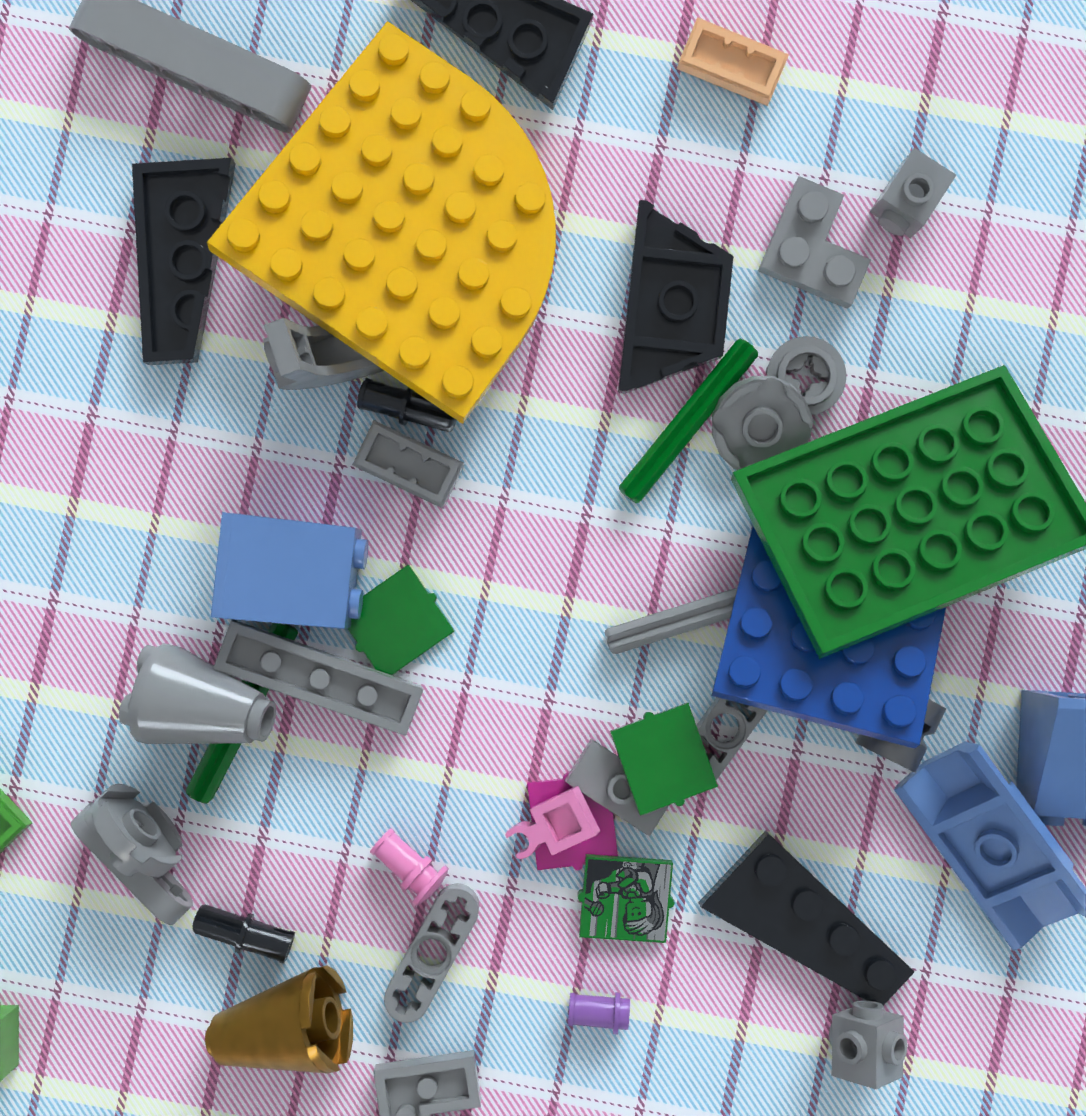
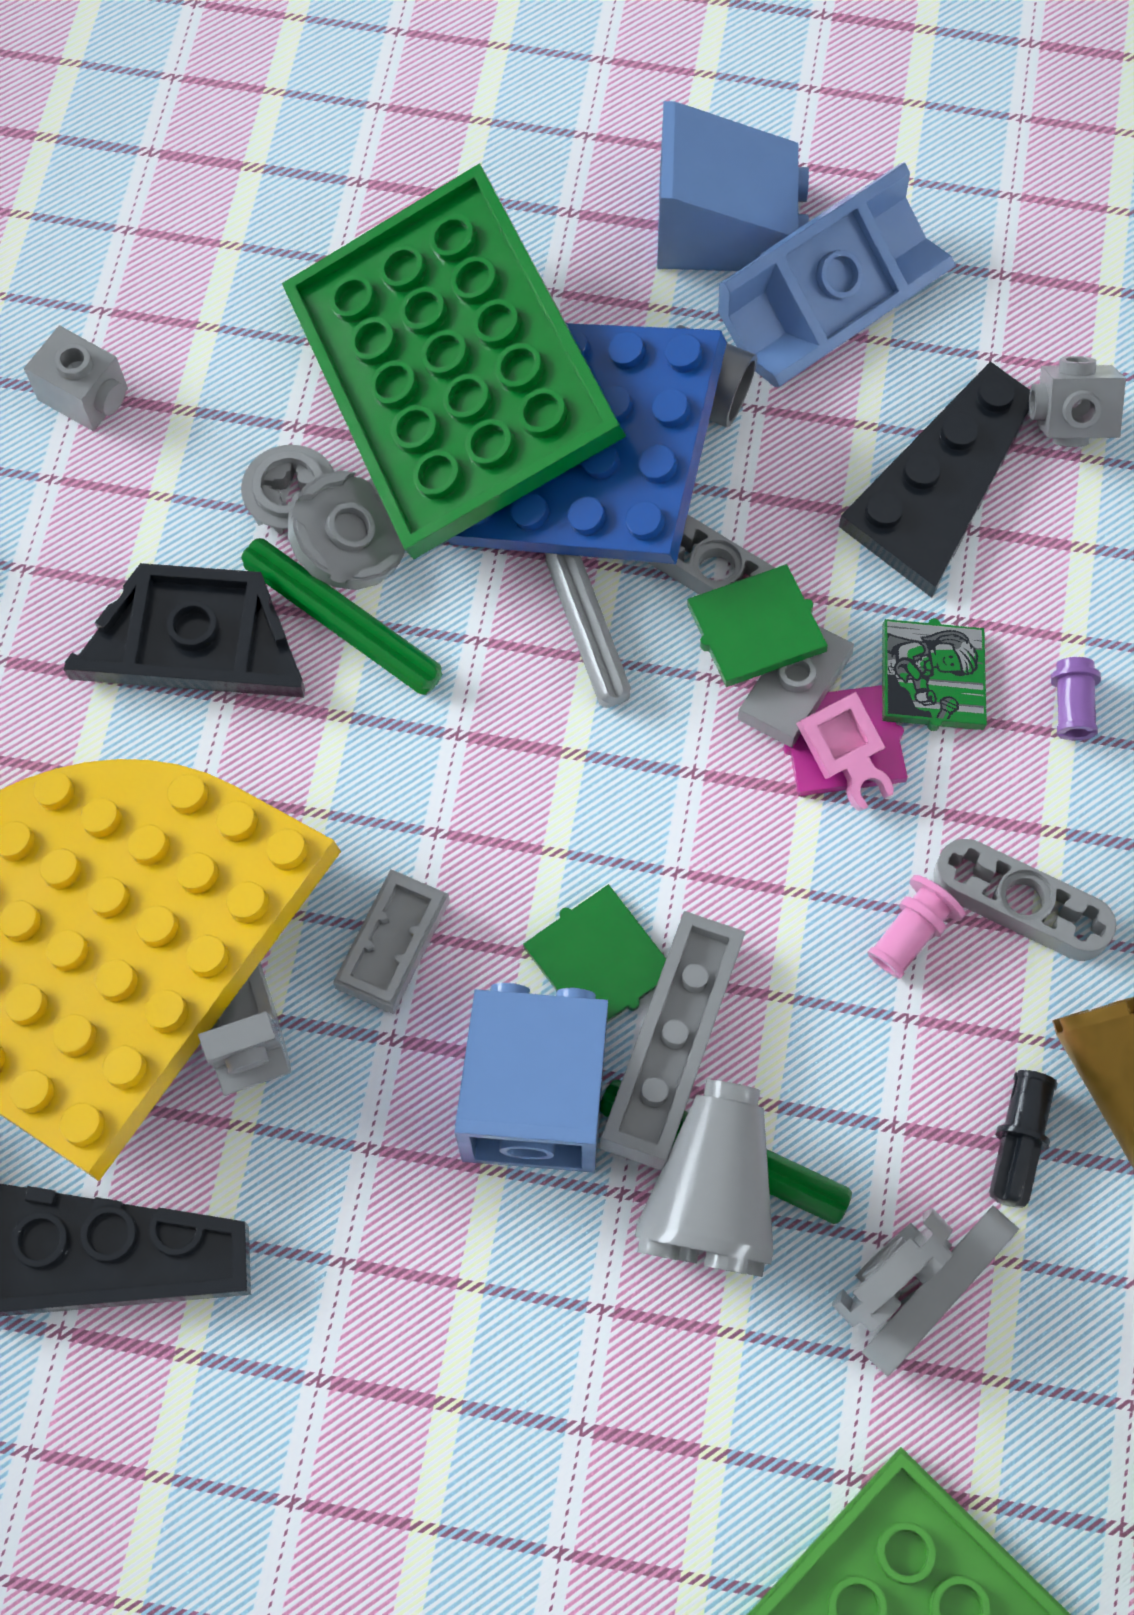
camera: 85 degrees left, 20 degrees down
(403, 405) = (314, 944): black axle -> none
(800, 249) = (133, 500): light grey plate -> none

